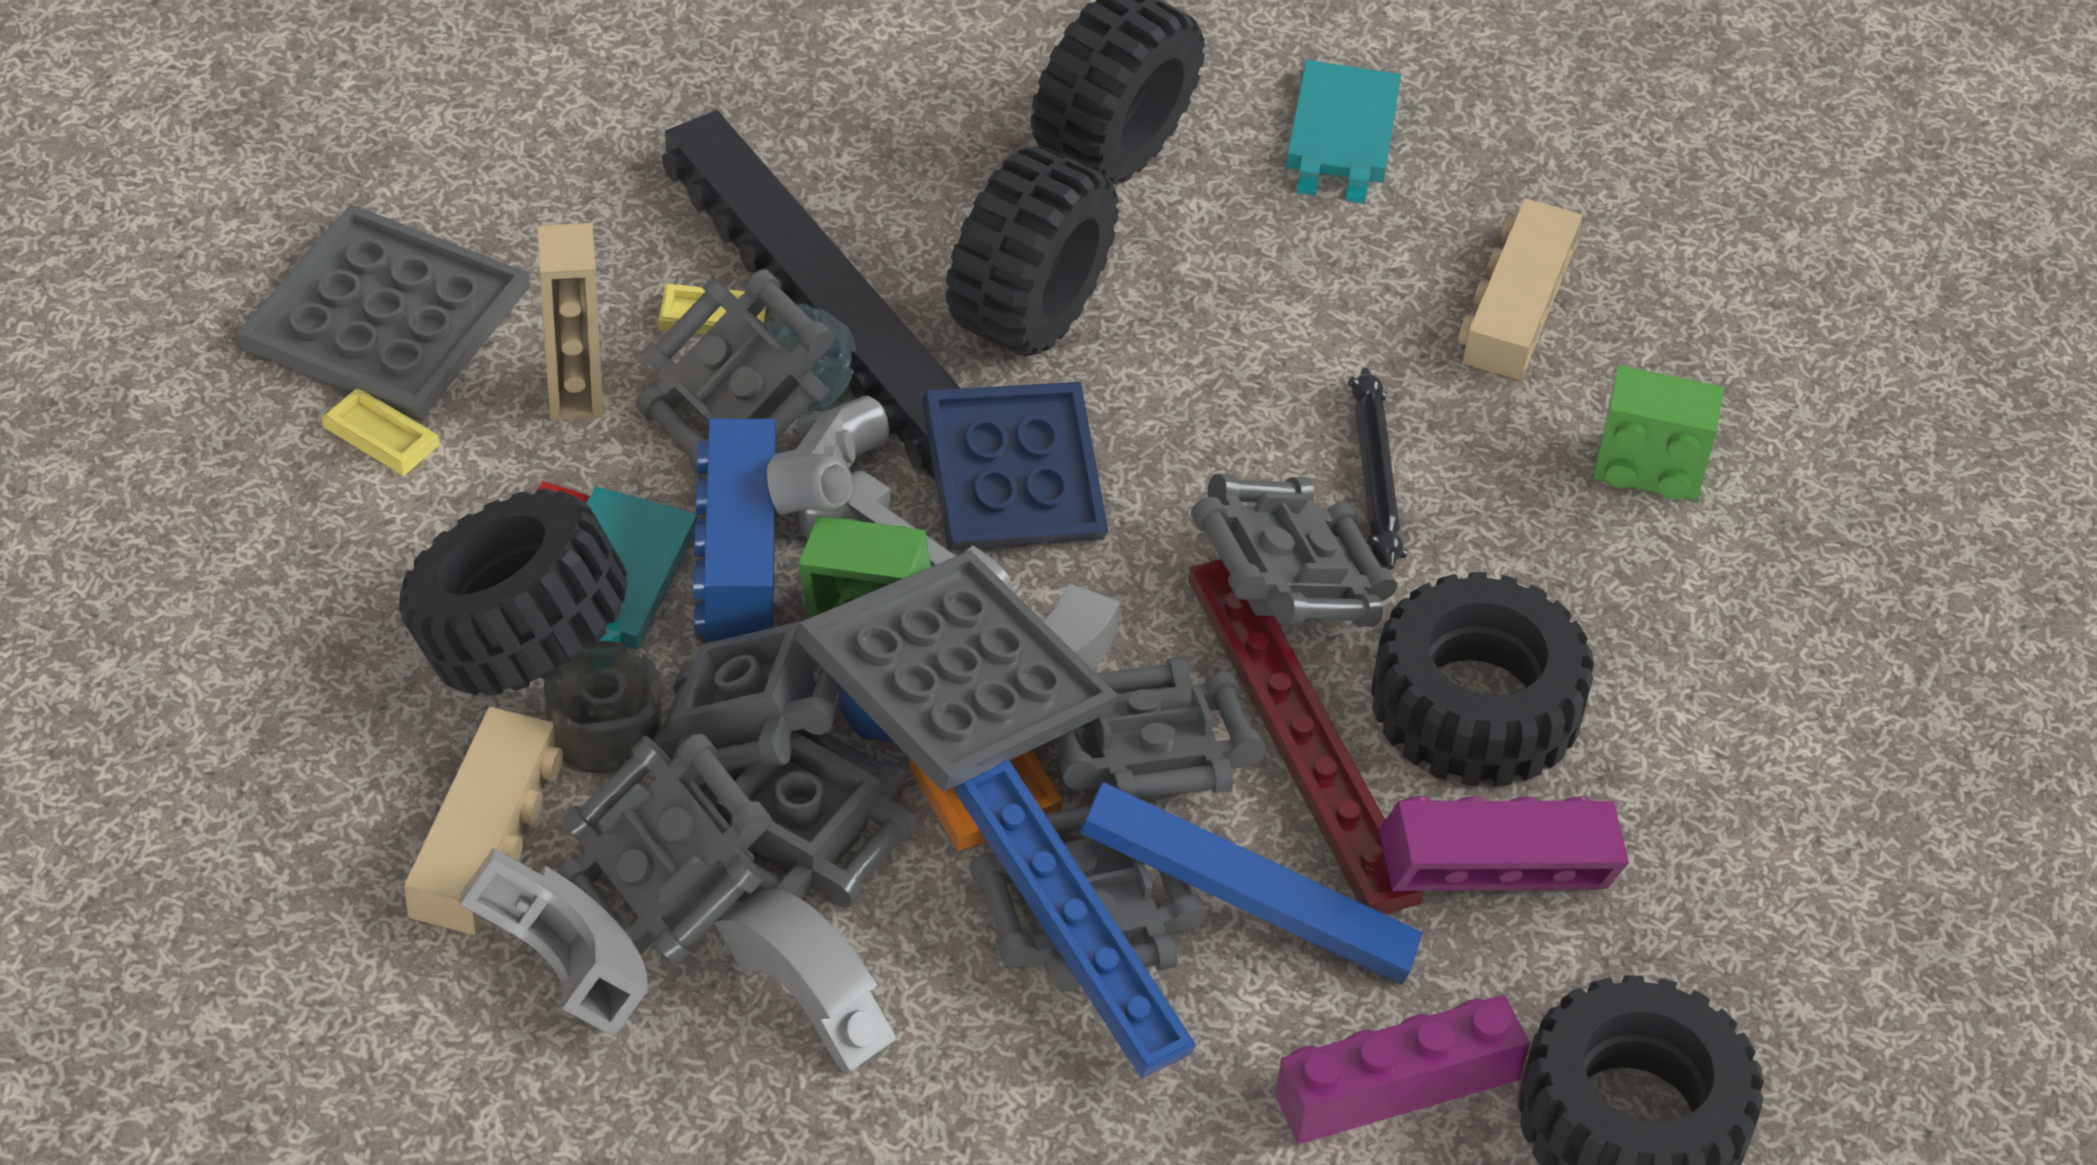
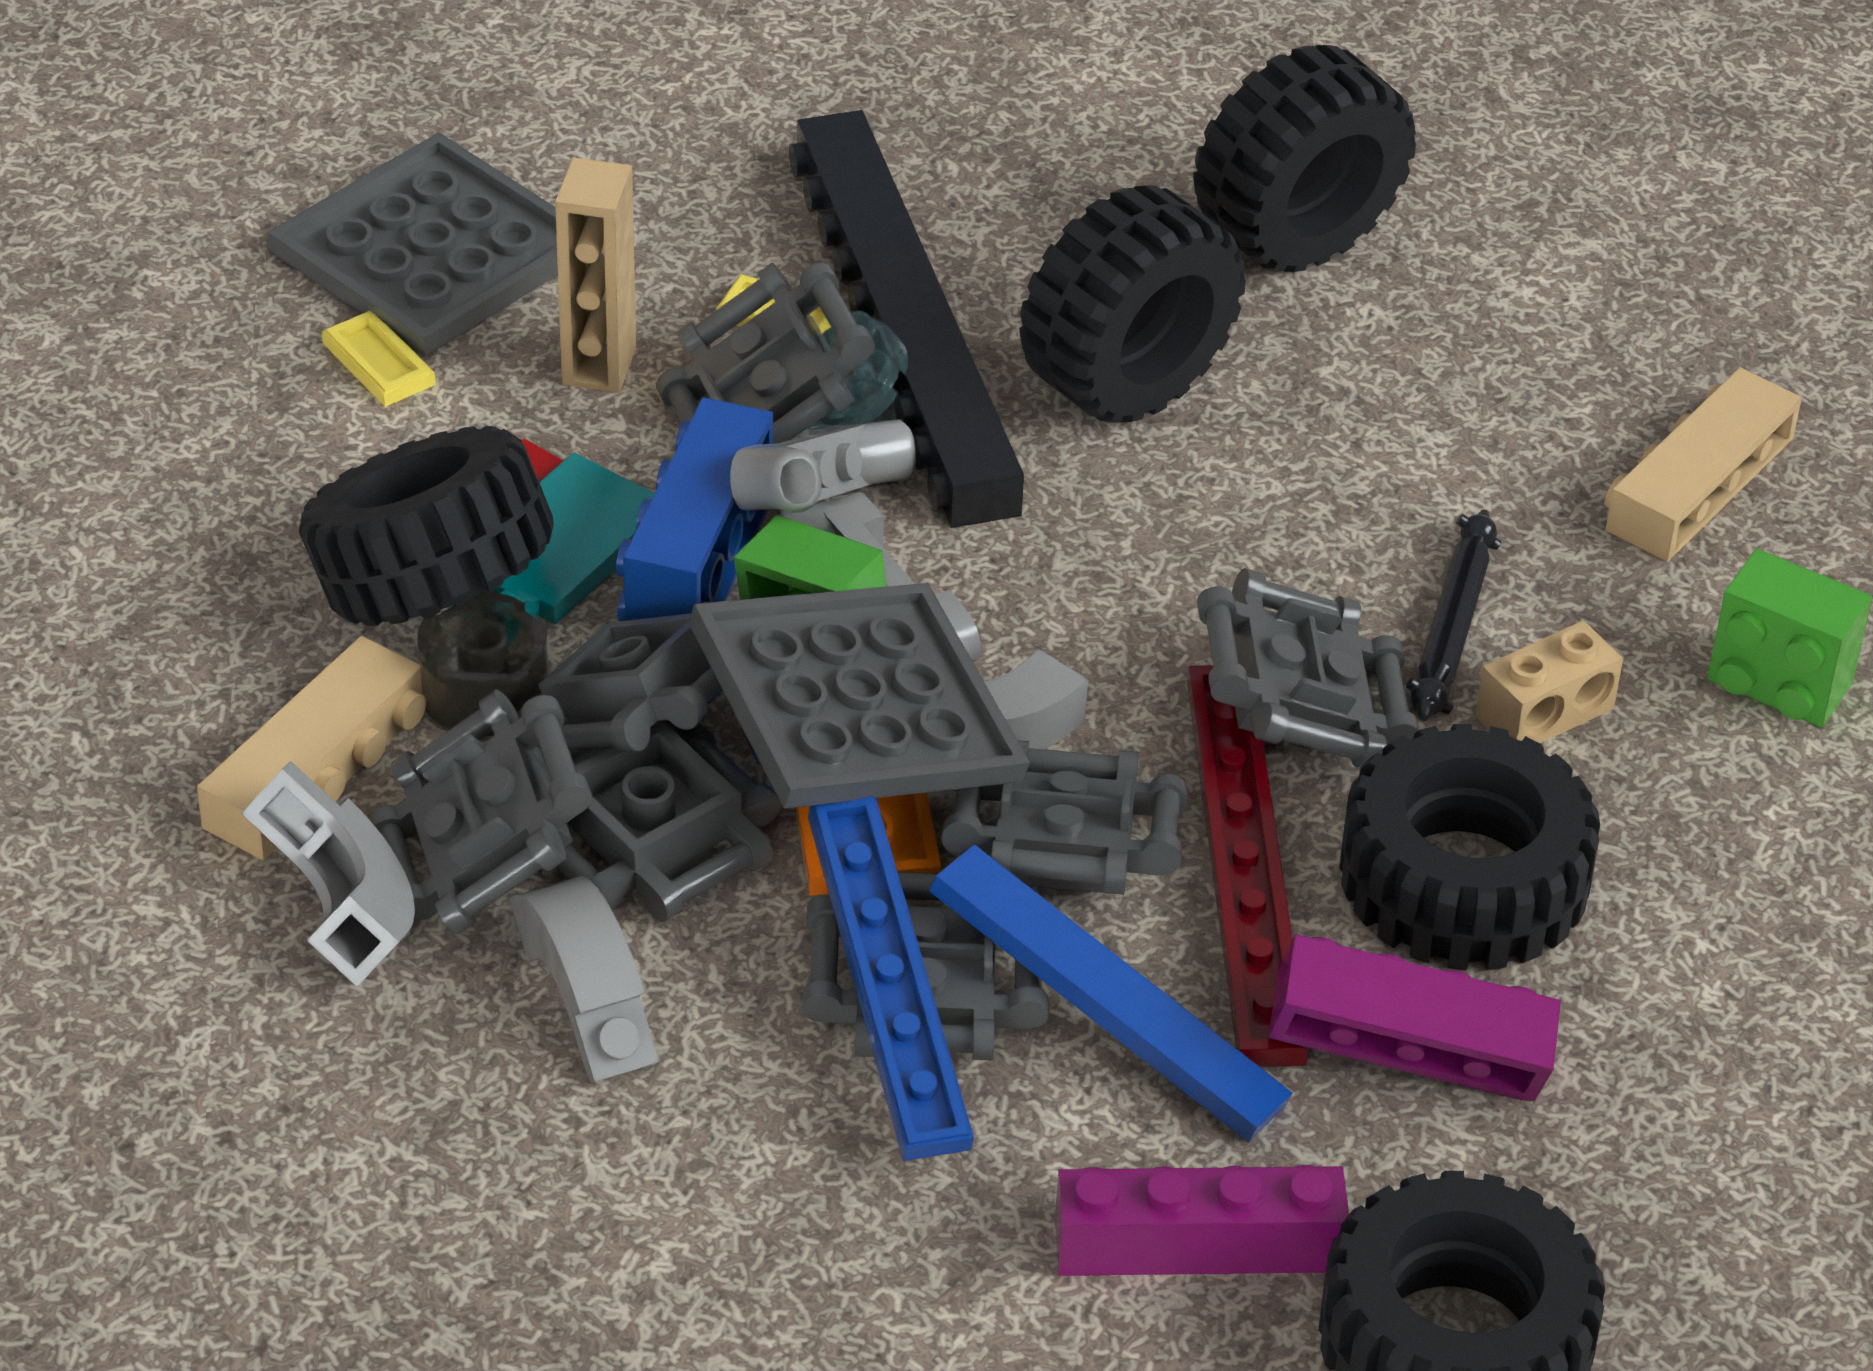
camera: 20 degrees right, 5 degrees down
(1014, 465) = (1031, 520): dark blue plate -> none
(1342, 126) = (1571, 262): teal tile -> none
(1483, 518) = (1550, 684): none -> tan brick

